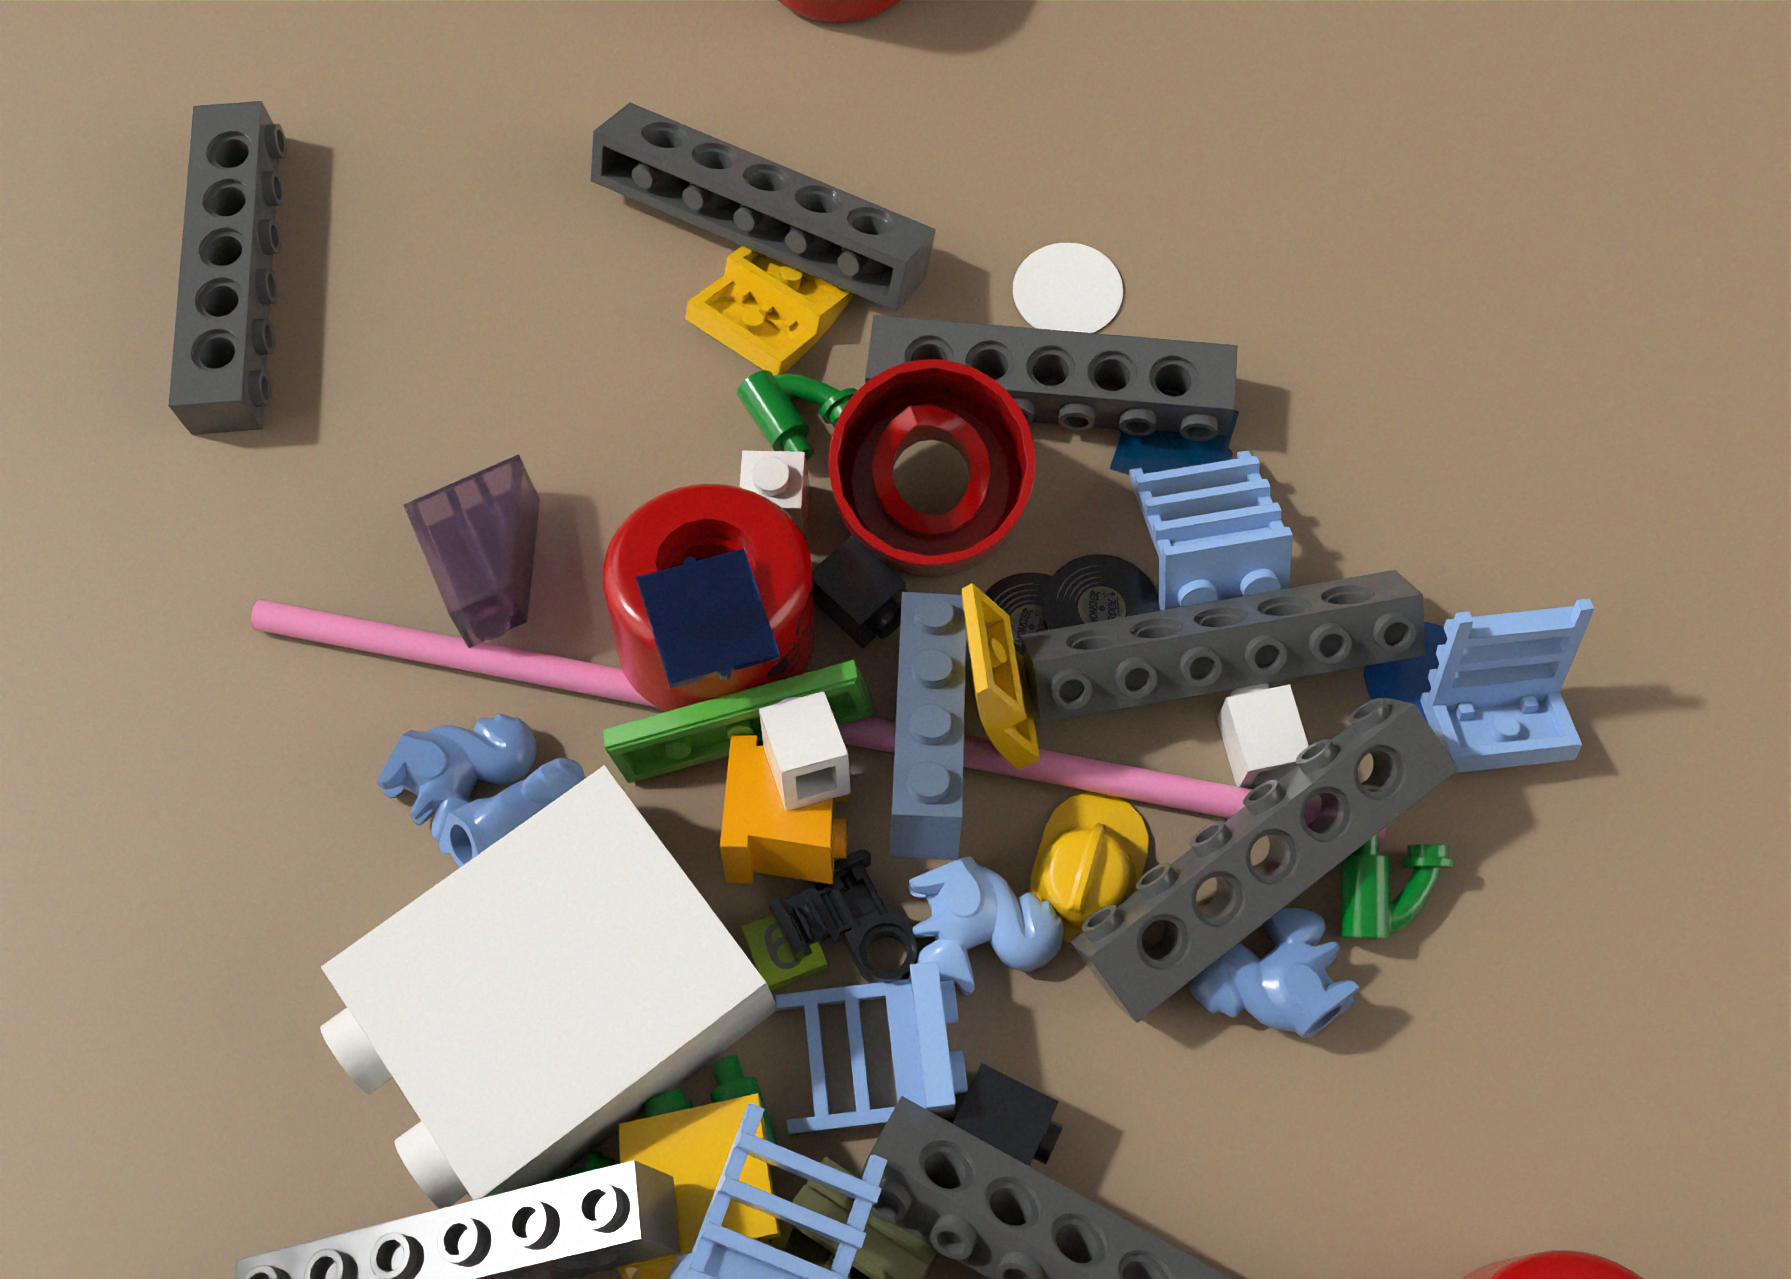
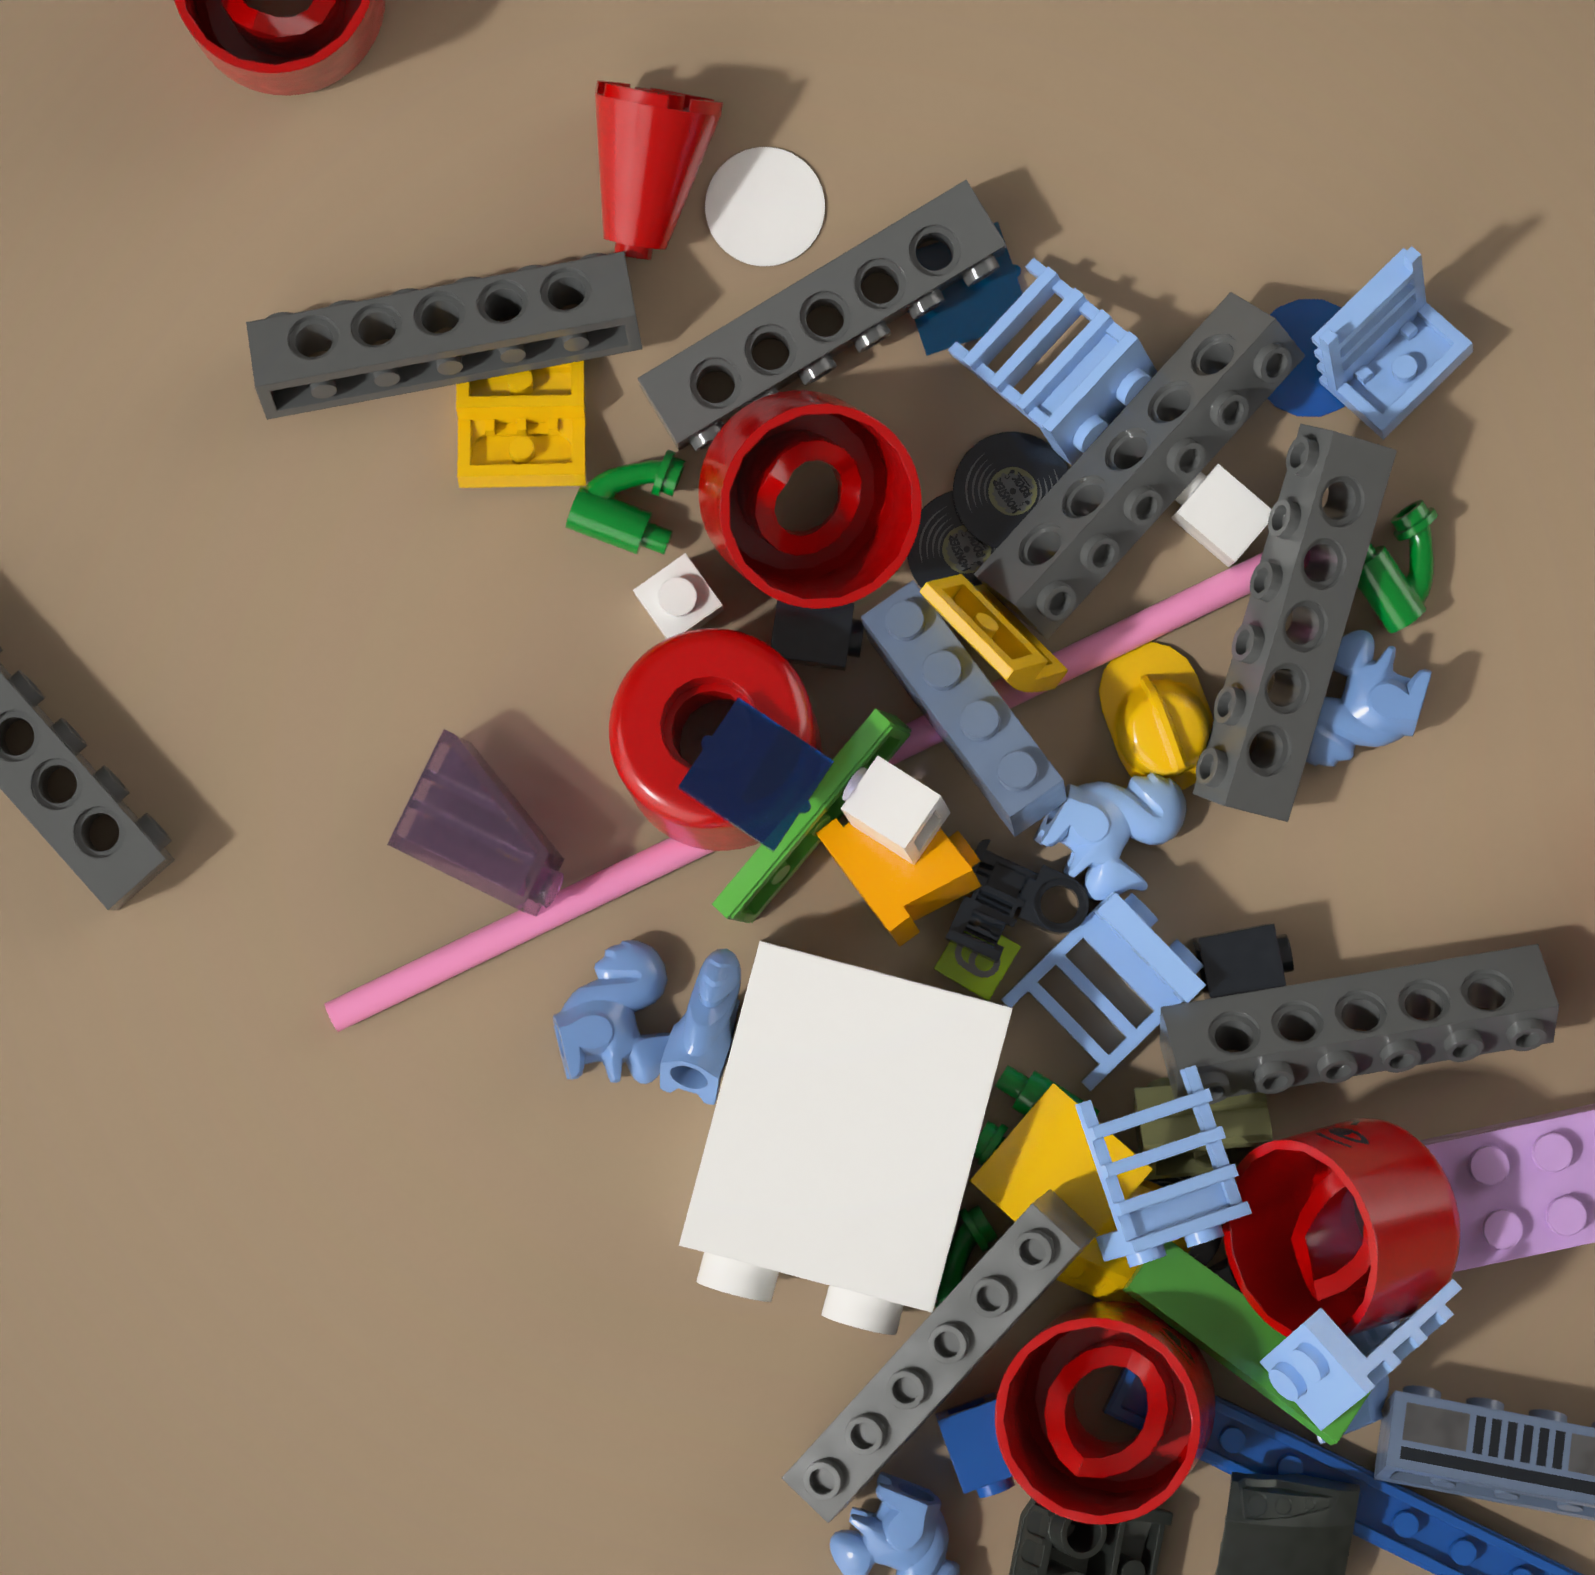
camera: 45 degrees left, 20 degrees up
(1007, 184) = (648, 160): none -> red cone

